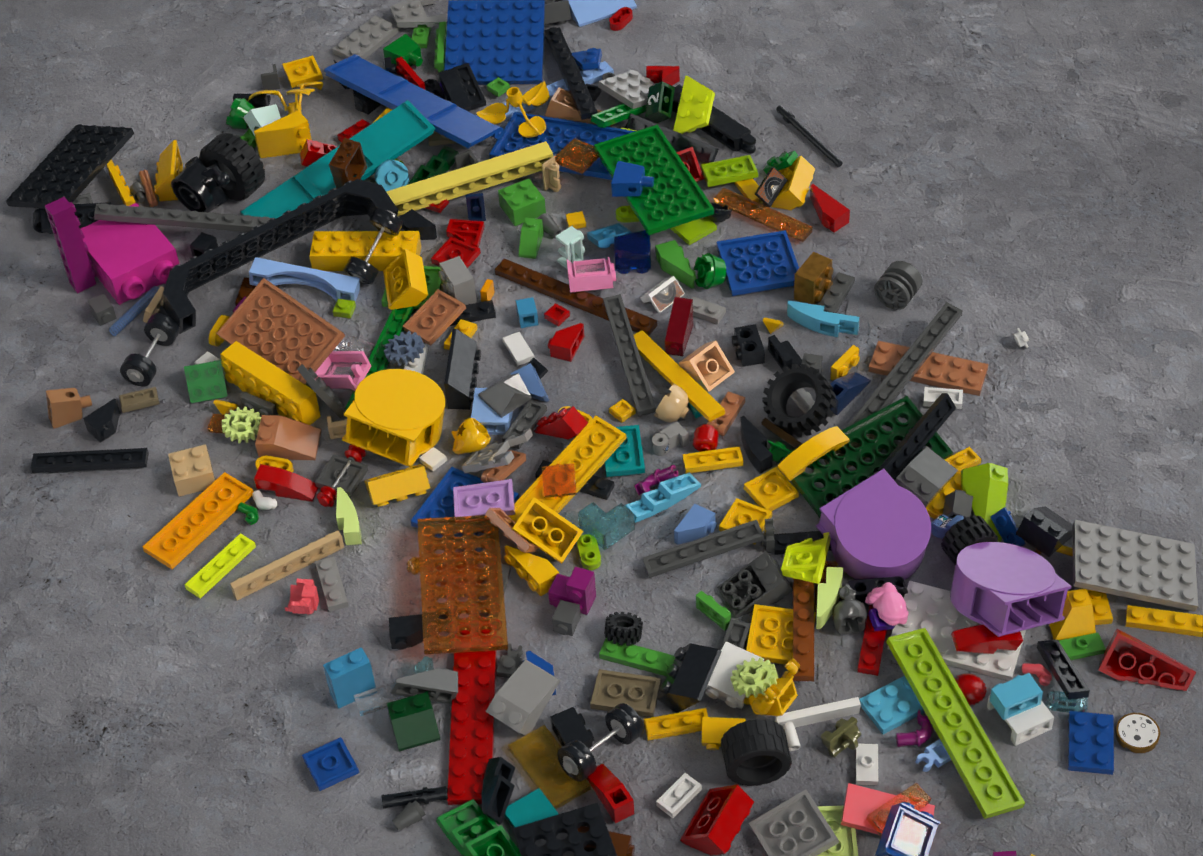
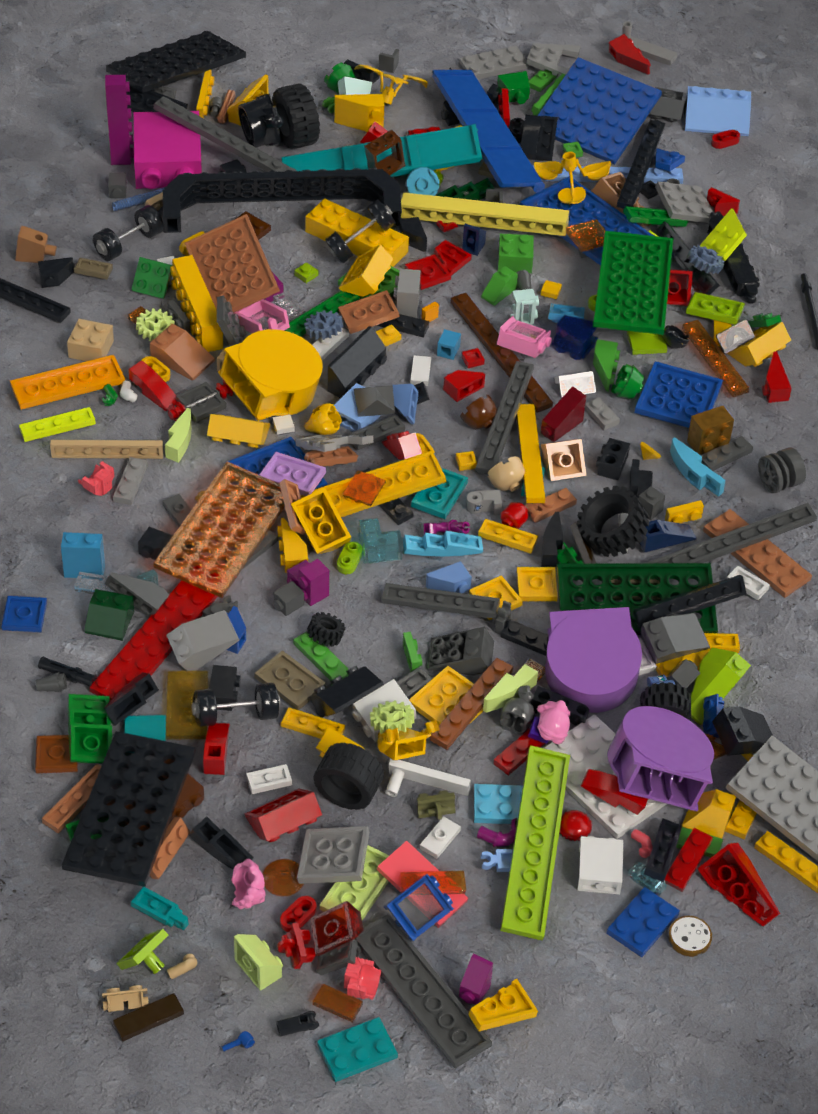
camera: 25 degrees right, 0 degrees up
(224, 406) = (153, 303): yellow slope -> none
(279, 273) = (267, 217): light blue arch -> none
(302, 71) = (420, 65): yellow plate -> none
(400, 588) = (177, 508): none -> dark grey plate
(551, 174) = (555, 241): tan hinge -> none
(606, 361) = (480, 413): none -> reddish brown cylinder
(629, 180) = (607, 272): blue torso -> none
(659, 102) = (697, 222): dark green brick -> none
(695, 131) = (705, 259): none -> sand blue gear
(806, 559) = (514, 650): neon yellow wing -> none
(812, 450) = (589, 566): yellow slope -> none
(1016, 696) = (599, 847): medium azure brick -> none
(1087, 663) = (688, 859): none -> red plate

